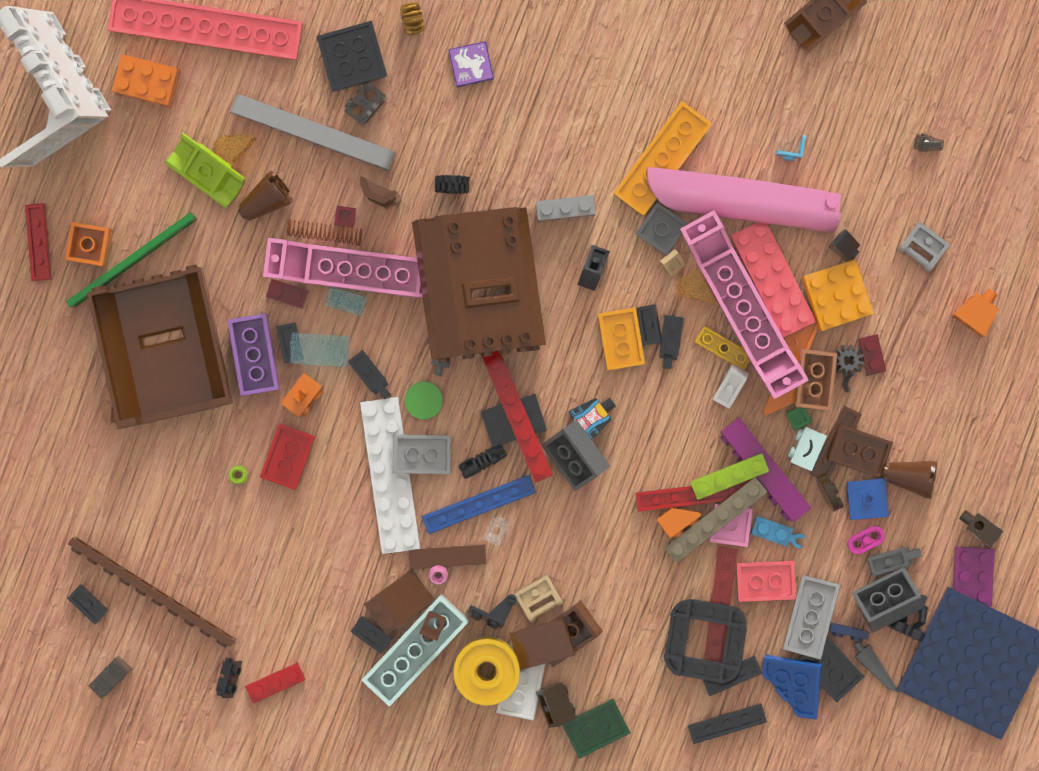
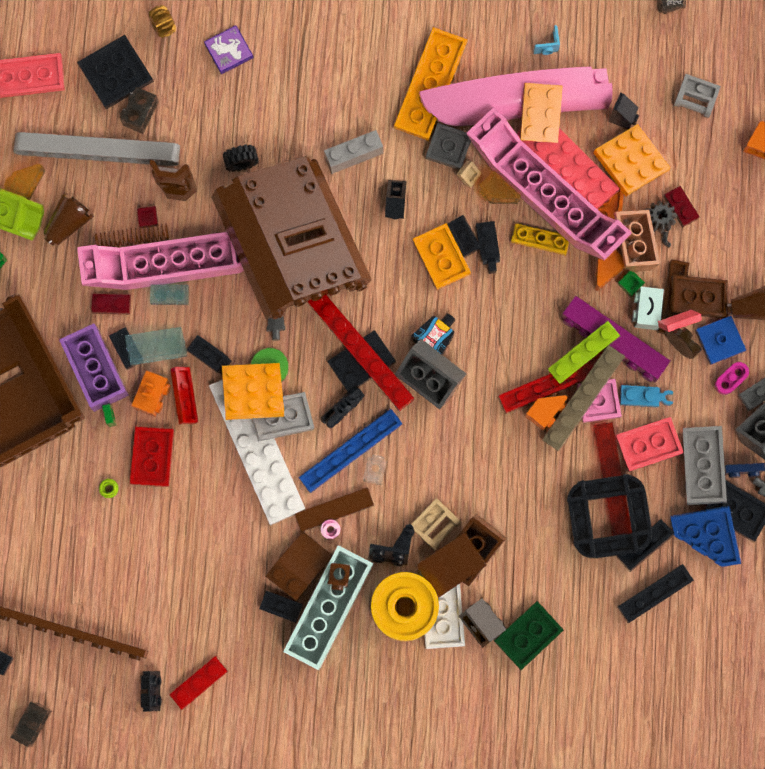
camera: 20 degrees left, 10 degrees down
(256, 405) = (109, 415): none -> green tile
(334, 406) = (184, 395): none -> red plate
(400, 423) = (252, 391): none -> light orange plate
(730, 386) = (558, 270): white plate -> none
(761, 225) = (541, 112): none -> light orange plate
(831, 472) = (680, 320): none -> coral tile

